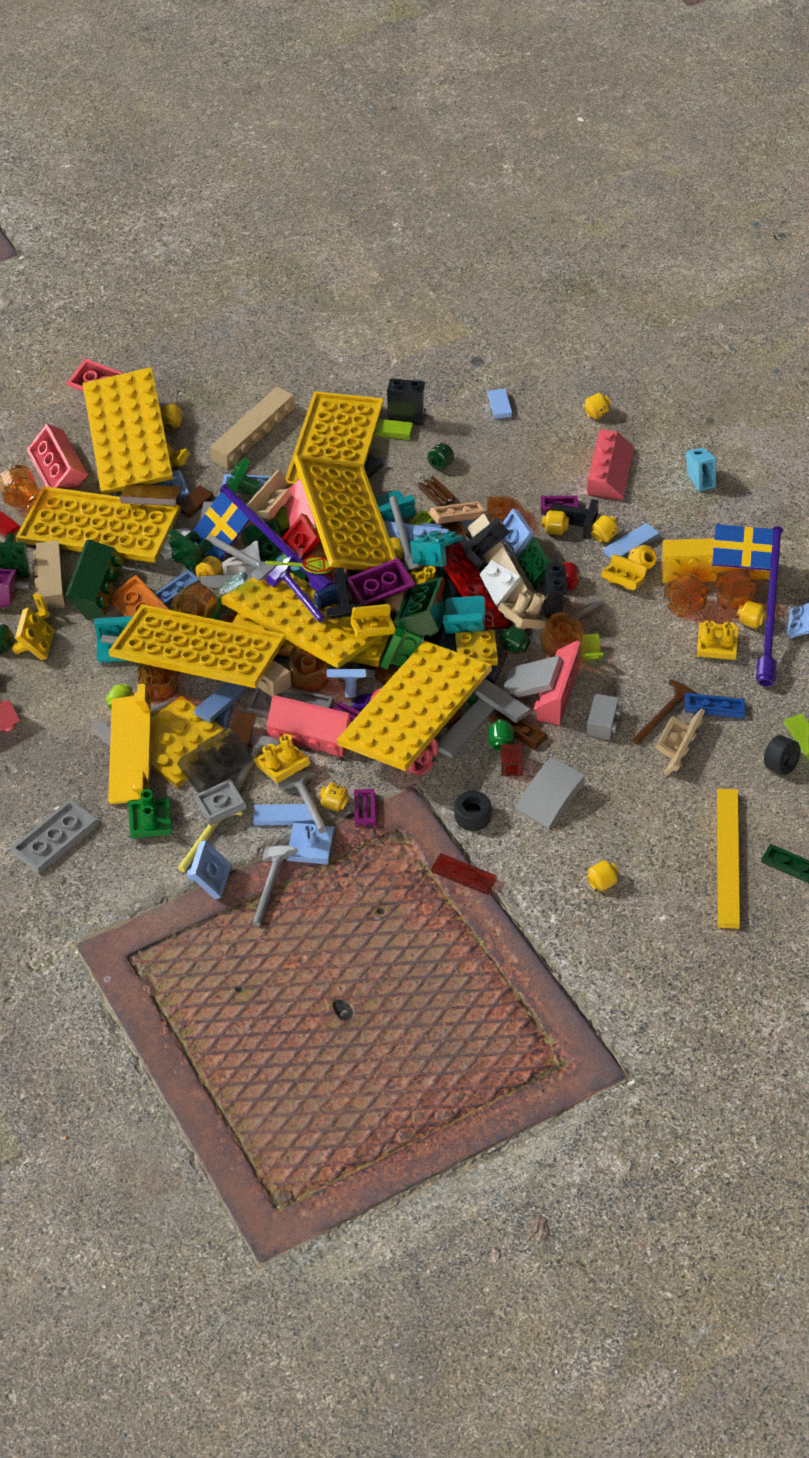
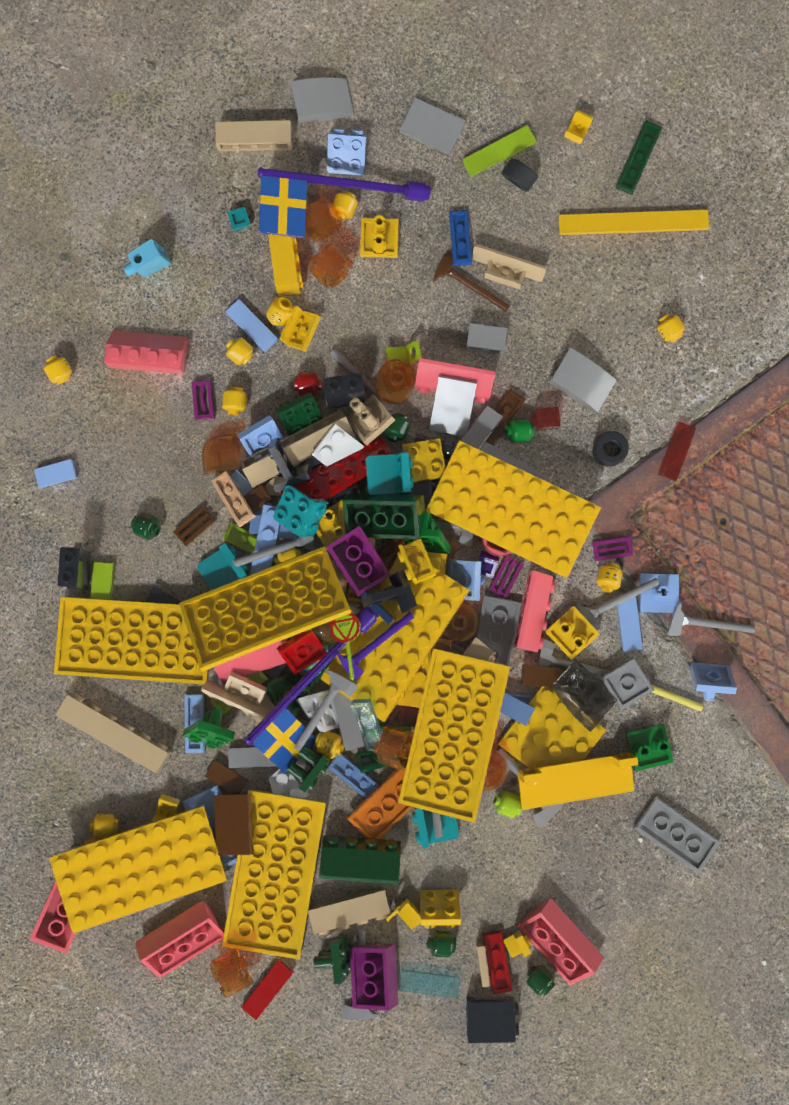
camera: 100 degrees left, 35 degrees up
(580, 516) = (222, 378): black bracket -> none

